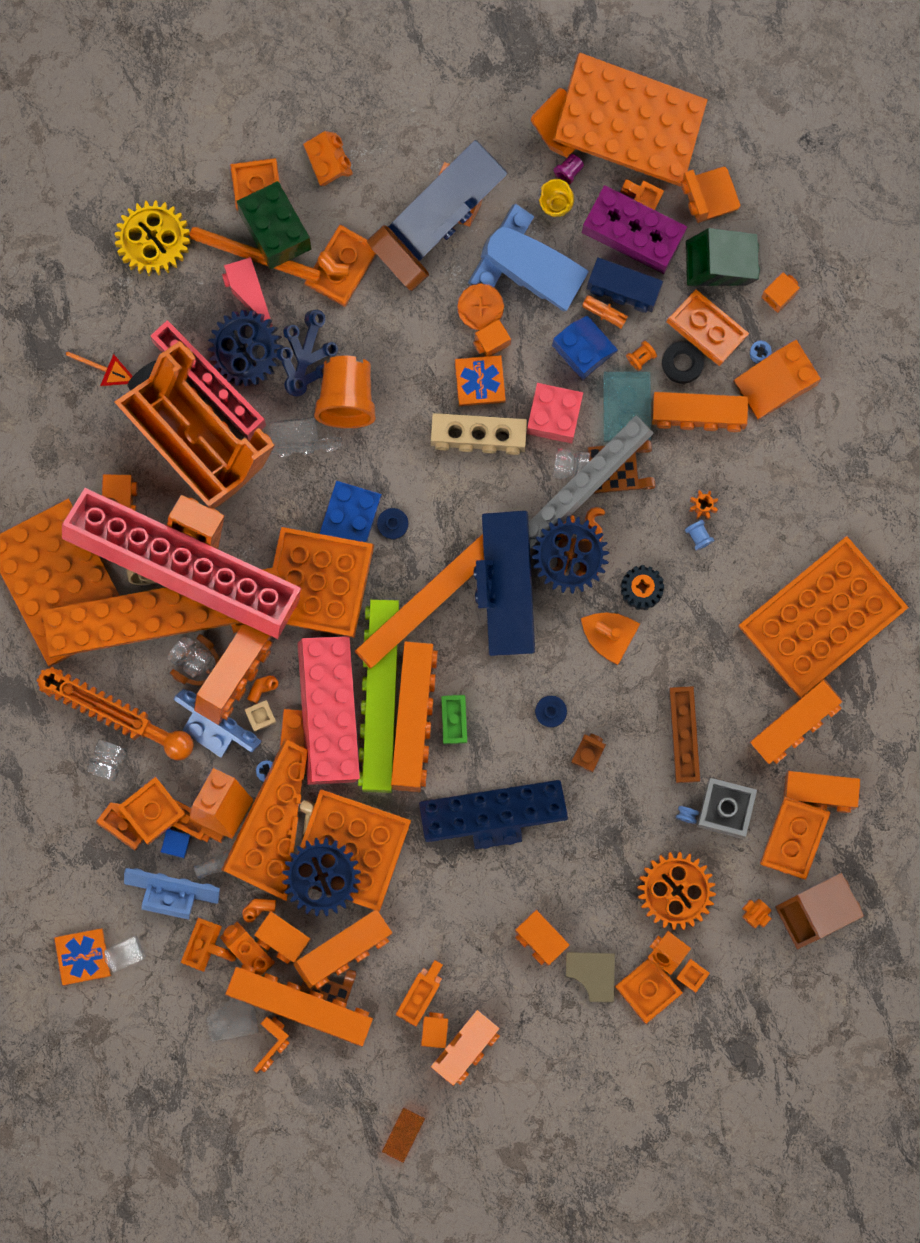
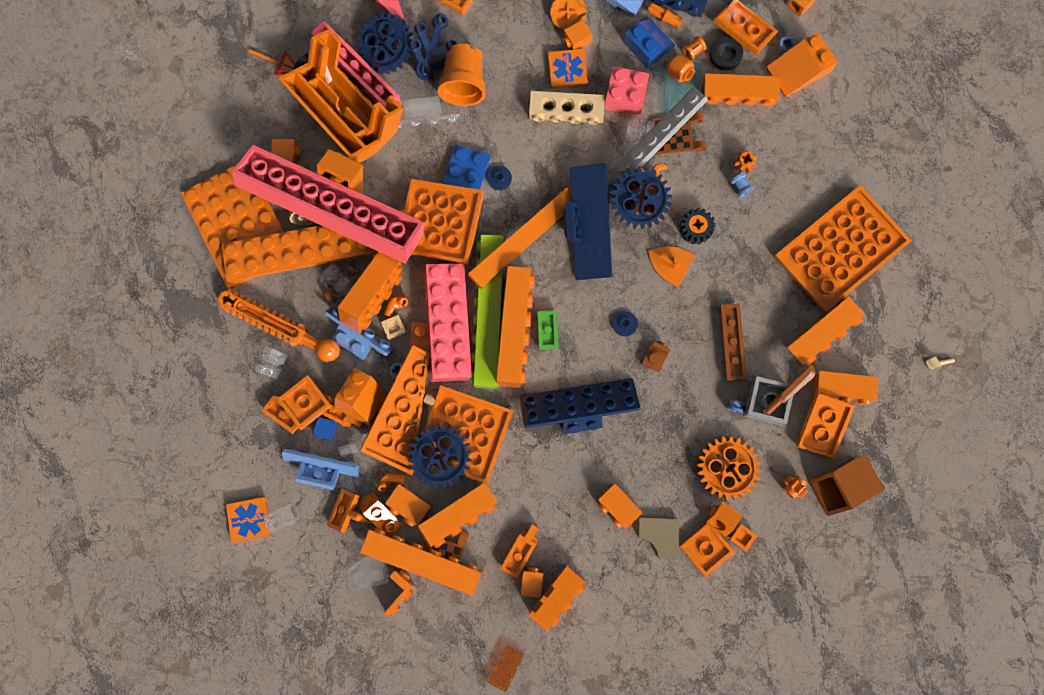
camera: 10 degrees right, 0 degrees up
(623, 384) = (680, 68): none -> orange head
(752, 794) = (795, 386): none -> dark orange piece

